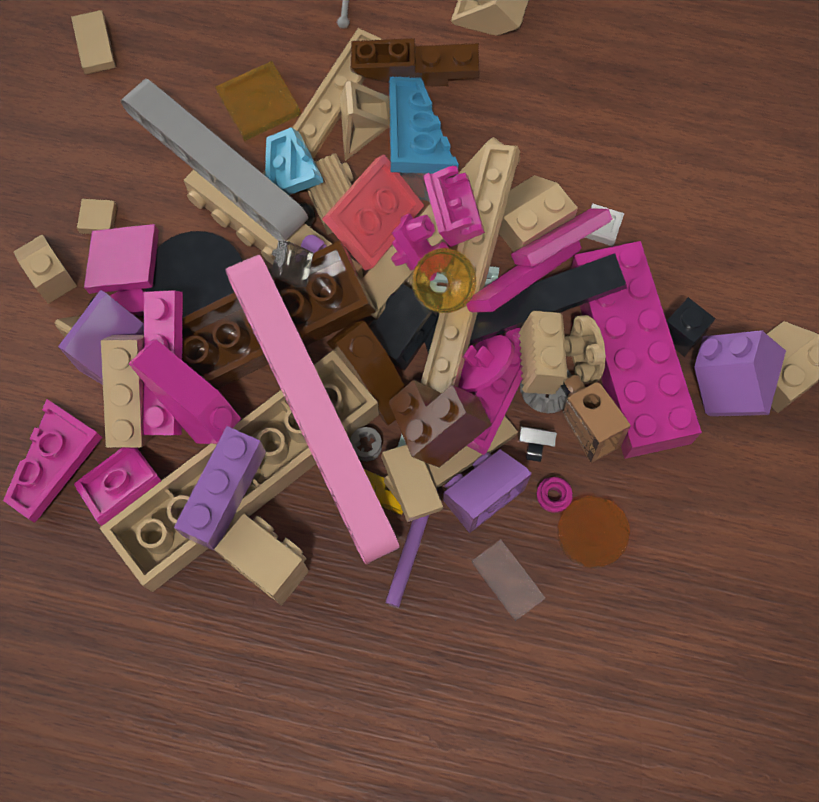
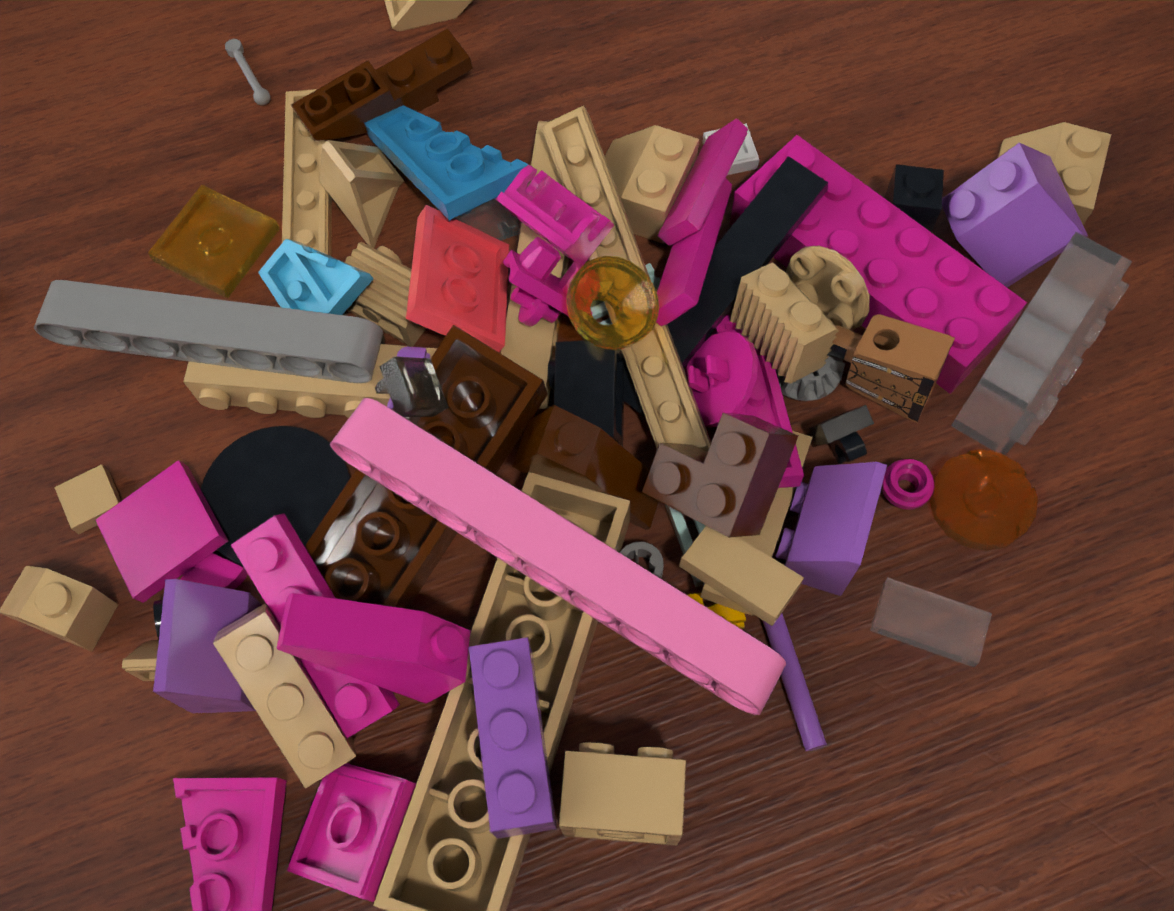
camera: 30 degrees left, 5 degrees down
(693, 461) = (1045, 346): none -> clear brick

